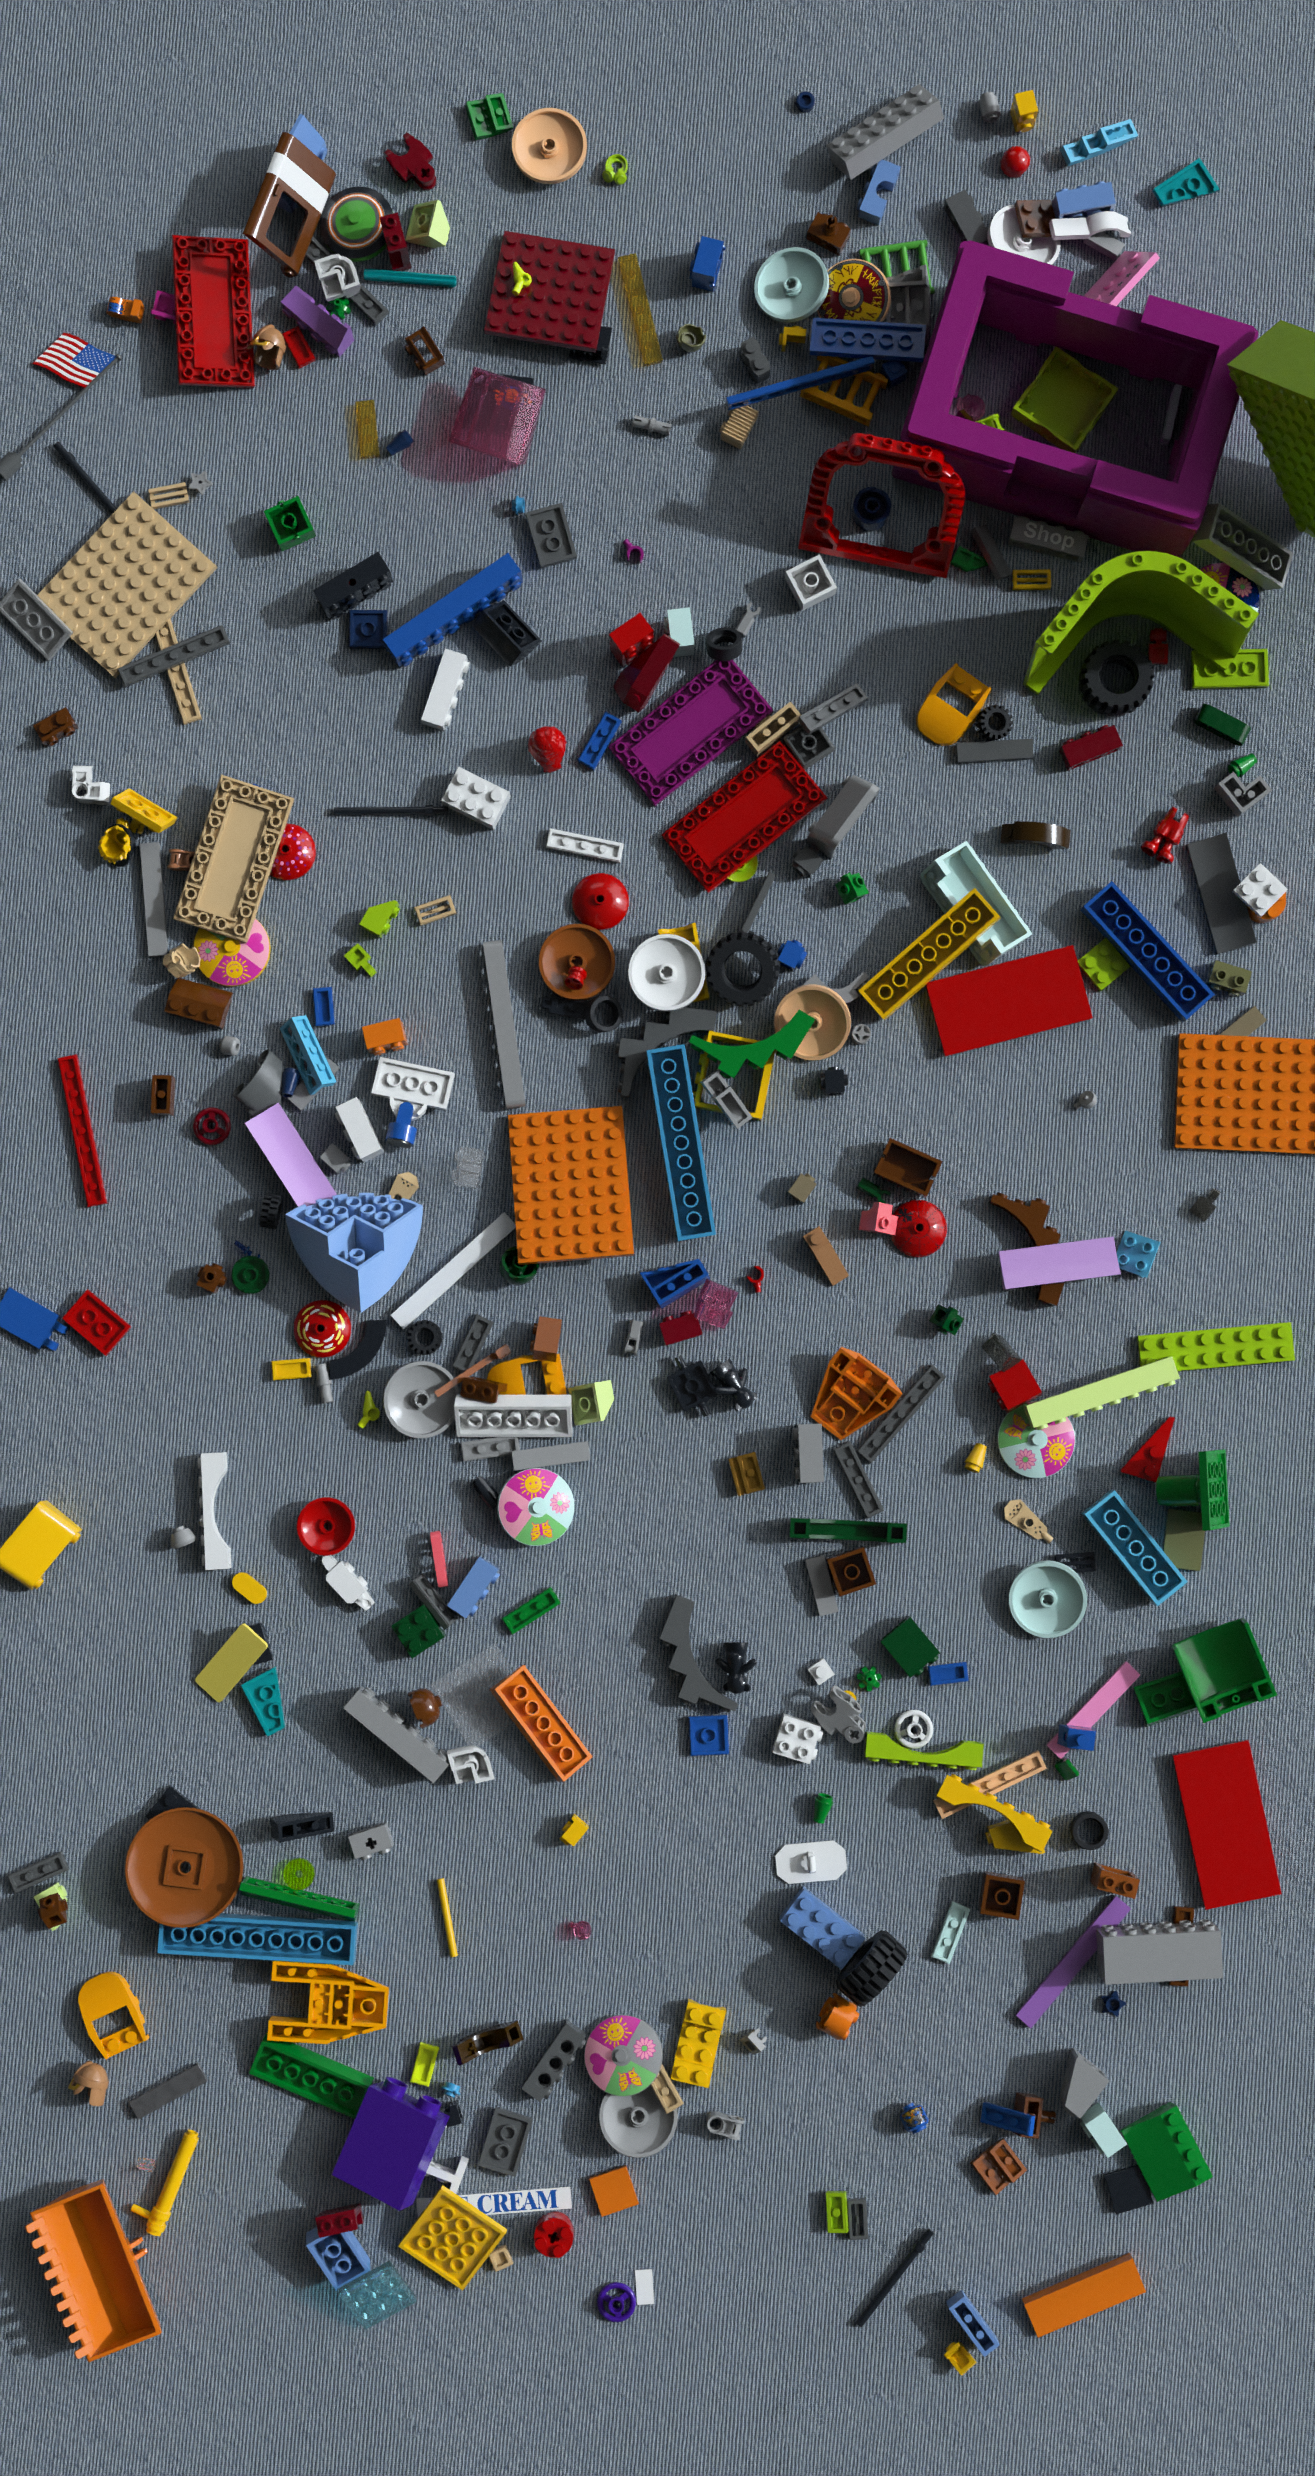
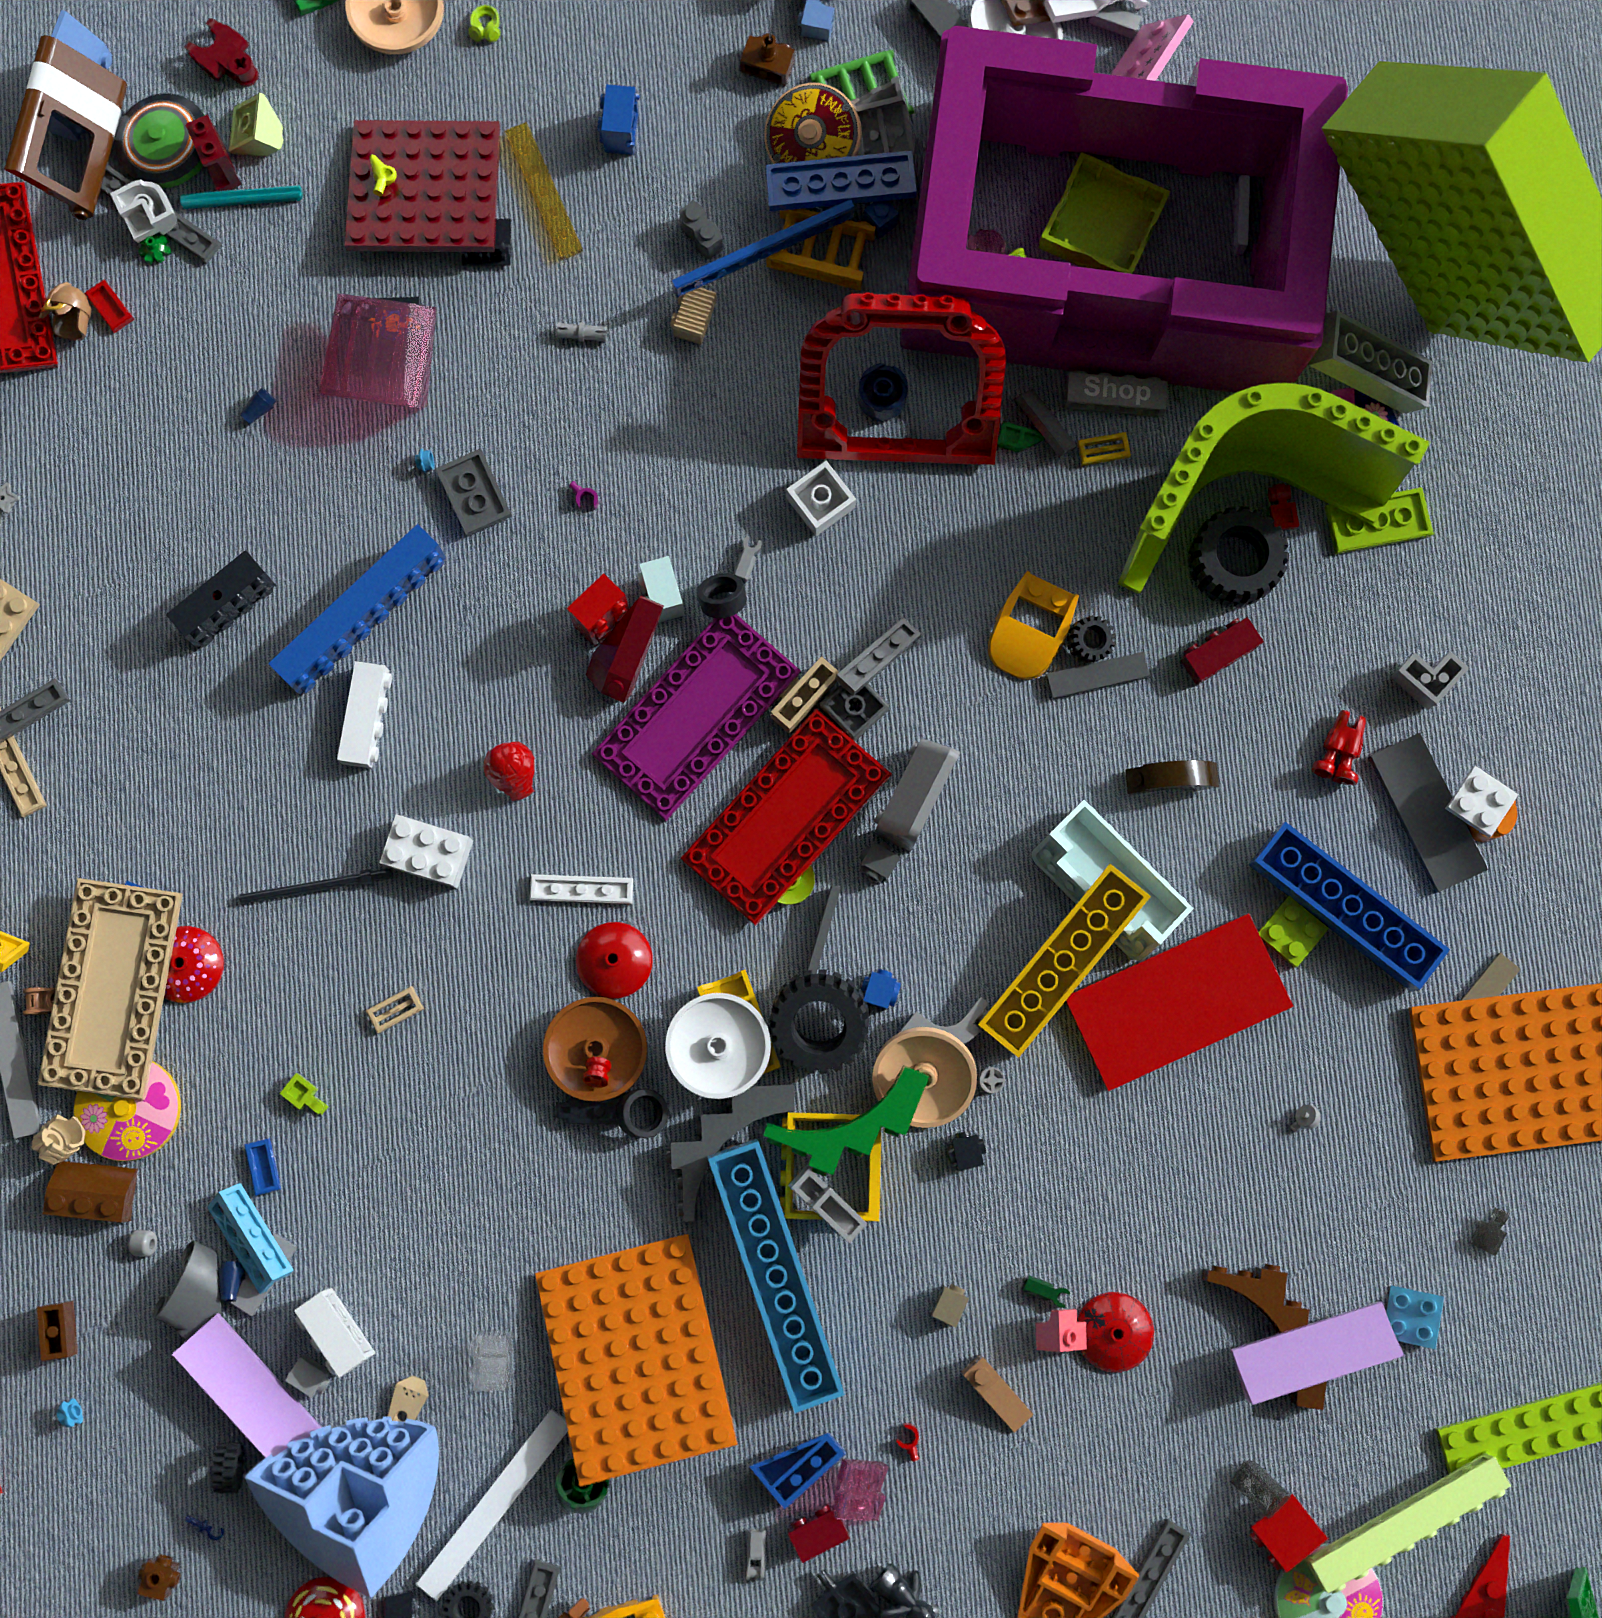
camera: 15 degrees left, 5 degrees down
(163, 1155) = (69, 1413): none -> dark azure plate
(224, 1133) = (123, 1363): dark red piece -> none
(250, 1274) = (213, 1560): dark green tile -> none
(290, 523) = (126, 532): green brick -> none
(317, 321) = (127, 268): medium lavender wedge -> none
(367, 429) = (213, 395): clear yellow tile -> none
(367, 629) = (250, 651): dark blue tile -> none
(378, 918) = (319, 1034): lime slope -> none
(385, 1036) = (349, 1195): orange brick -> none
(410, 1093) = (397, 1265): white plate -> none
(431, 365) = (282, 302): reddish brown window -> none
(504, 1024) = (511, 1150): light grey beam -> none
(506, 633) = (434, 627): black slope -> none
(547, 1339) = (637, 1582): dark orange brick -> none
(599, 740) = (579, 747): blue tile -> none
(690, 338) = (613, 215): olive hair -> none
(791, 284) = (731, 129): light aqua dish -> none
(792, 334) = (743, 191): yellow bracket -> none
(851, 888) = (944, 887): green brick -> none
(907, 1167) = (1086, 1254): reddish brown piece -> none
(946, 1320) = (1178, 1456): dark green brick -> none
(1222, 724) = (1384, 593): dark green beam -> none
(1228, 978) = (1460, 922): olive brick -> none
(1242, 765) = (1420, 641): green cone -> none

